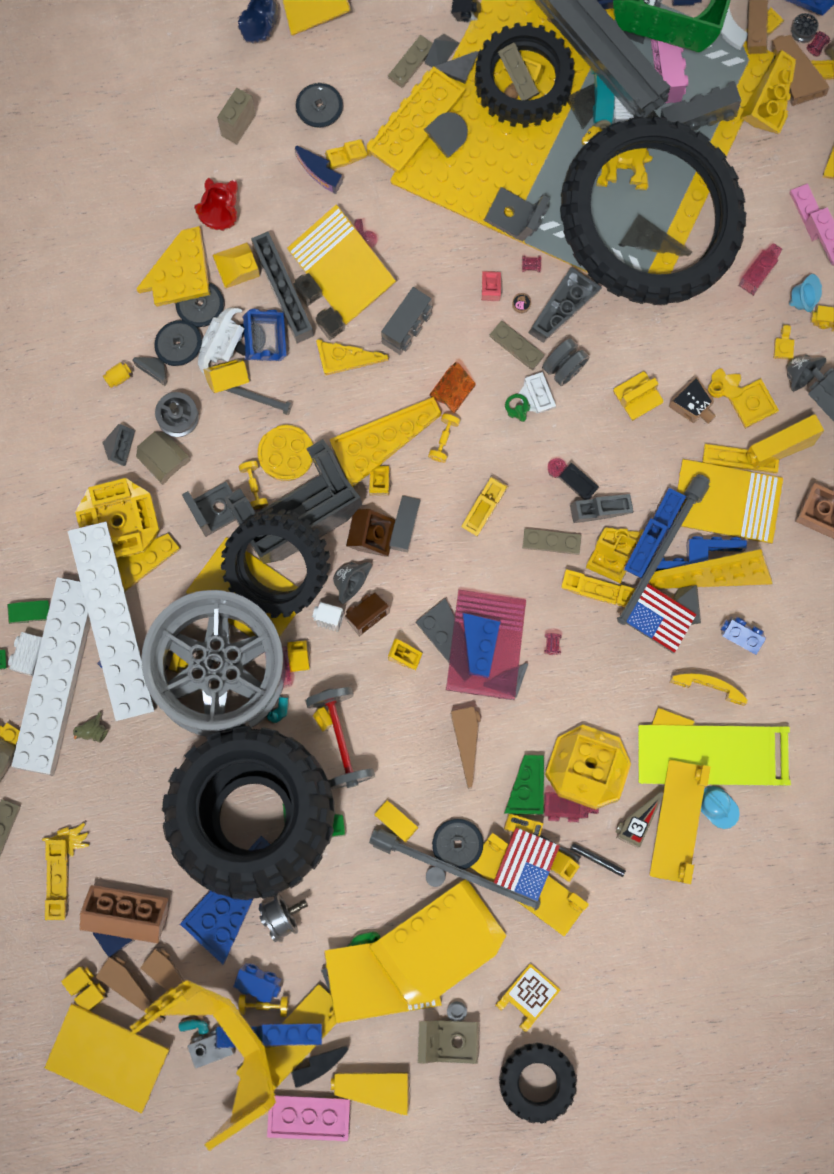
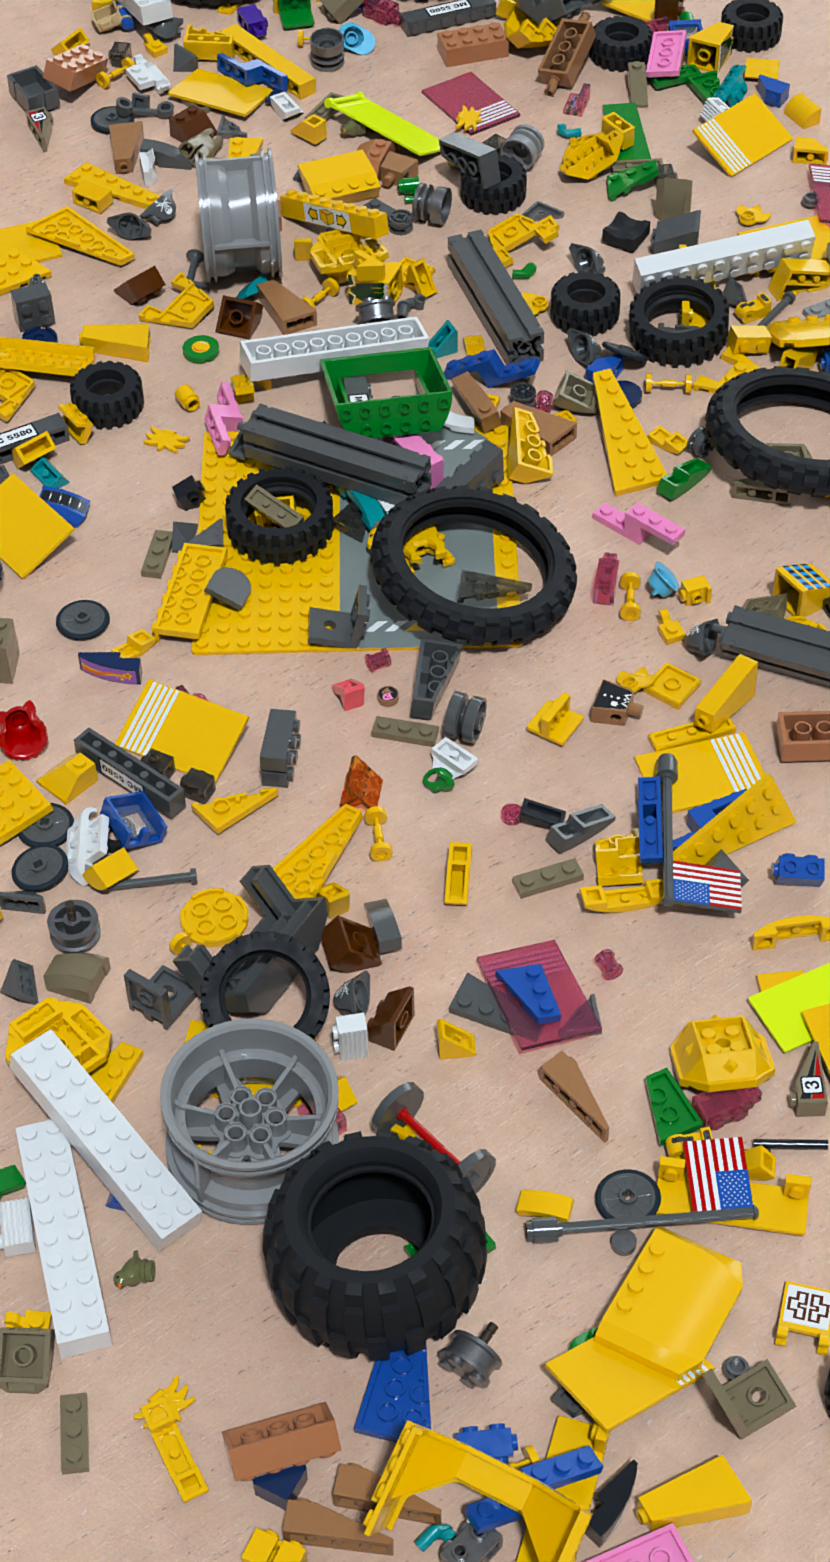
camera: 25 degrees left, 30 degrees down
(779, 281) = (630, 581): none -> yellow wheel

